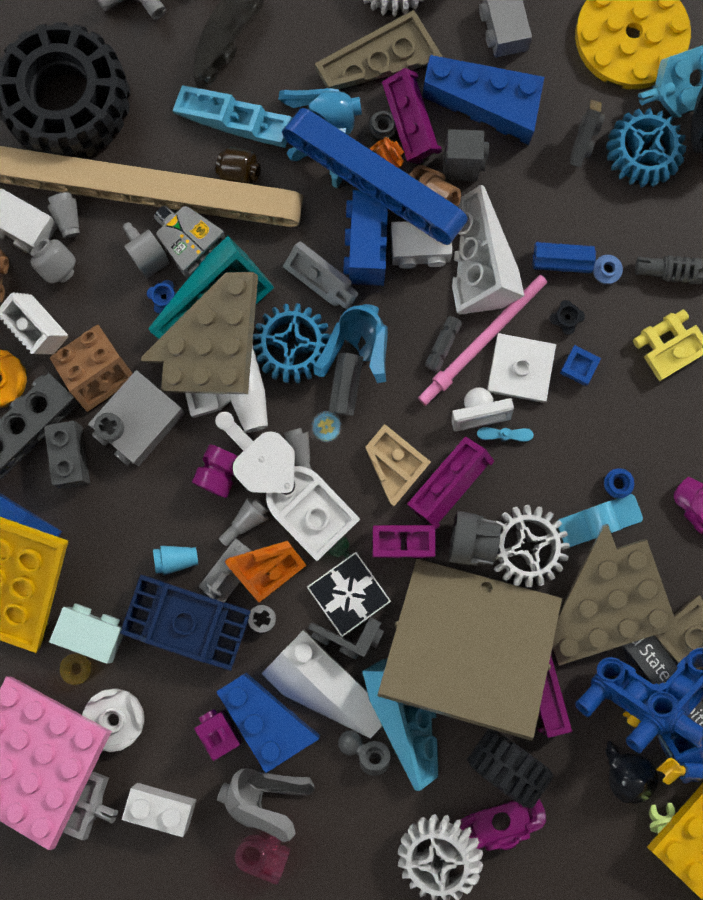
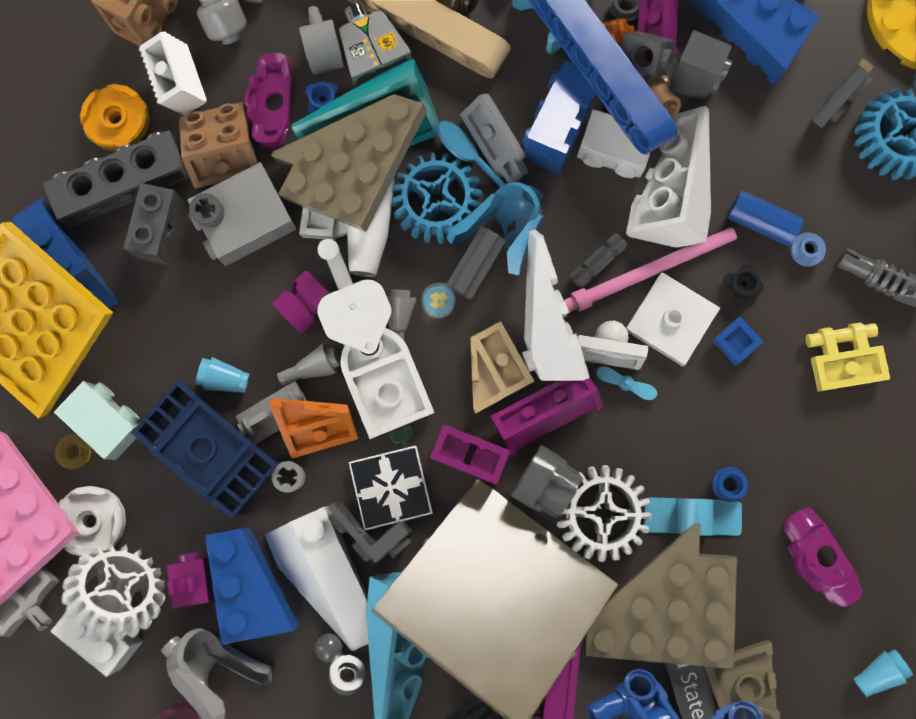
camera: 25 degrees right, 0 degrees up
(114, 295) = (272, 78): none -> magenta piece
(162, 777) = (109, 605): none -> white gear
(297, 293) = (463, 147): none -> dark azure piece
(427, 151) = (635, 45): none -> dark grey brick
(431, 425) = (549, 339): none -> white wedge

